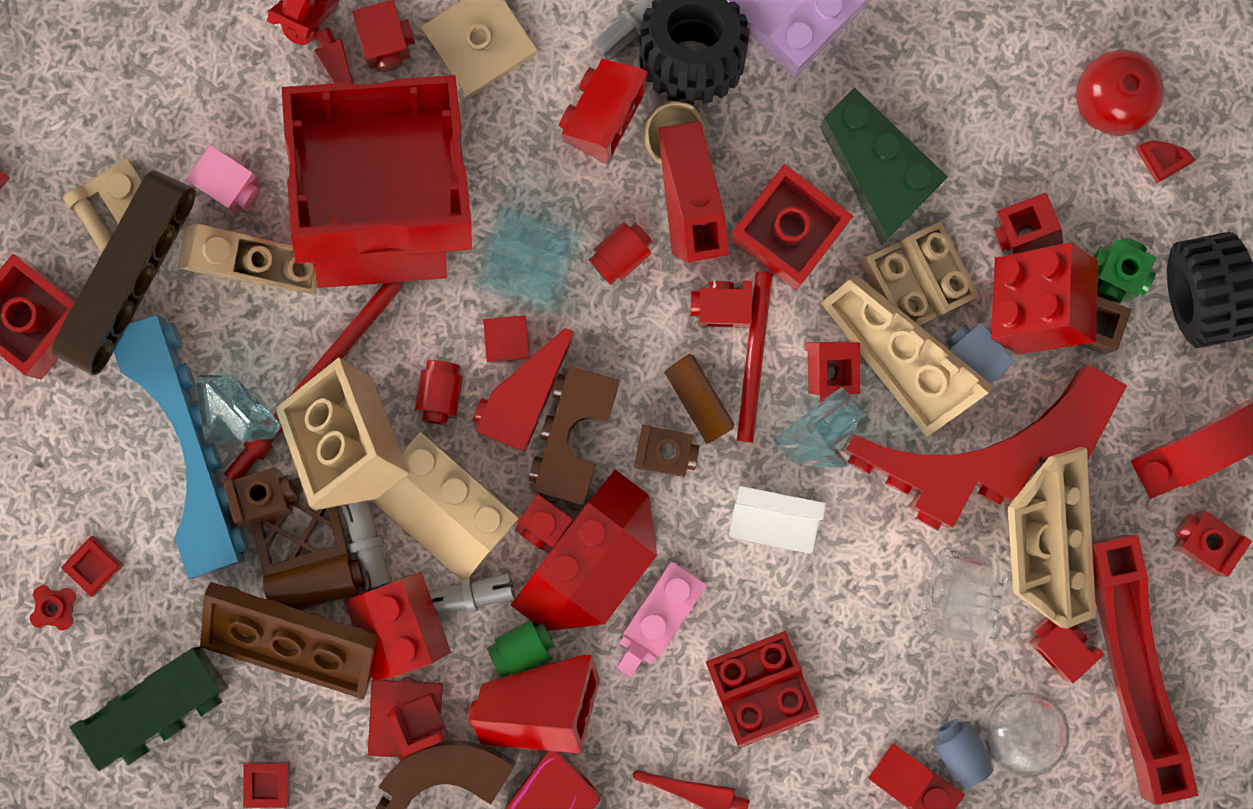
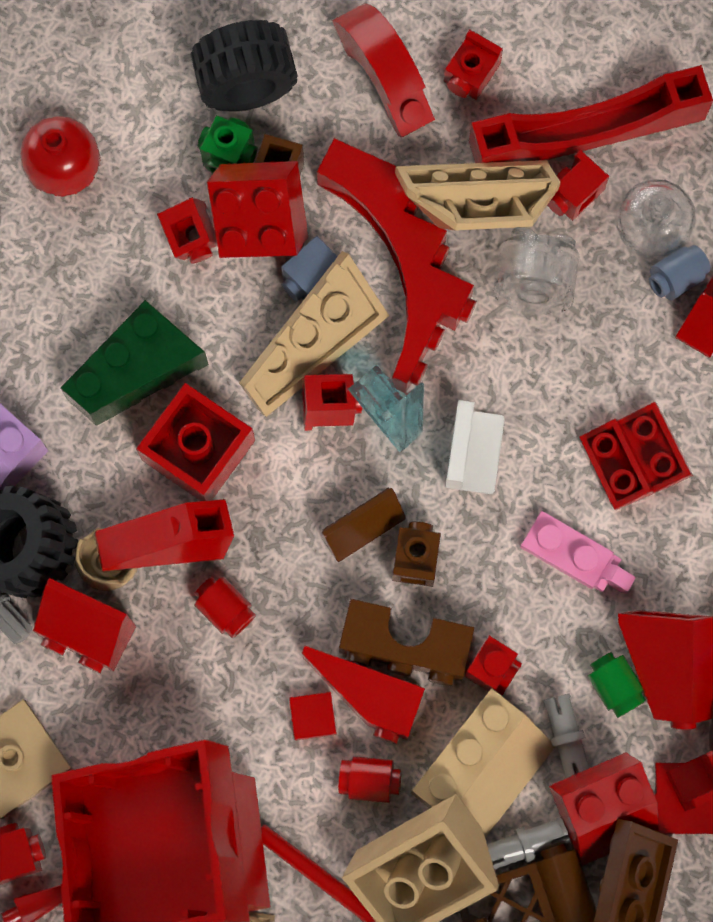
camera: 90 degrees left, 10 degrees down
(527, 260) = (234, 697): clear light blue bracket -> none
(593, 560) = (527, 615): red wedge -> none
(722, 305) = (272, 506): red brick -> none
(754, 357) = (319, 476): red bar -> none
(921, 275) = (236, 326): tan slope -> none
(1163, 158) = (121, 117): red tile -> none

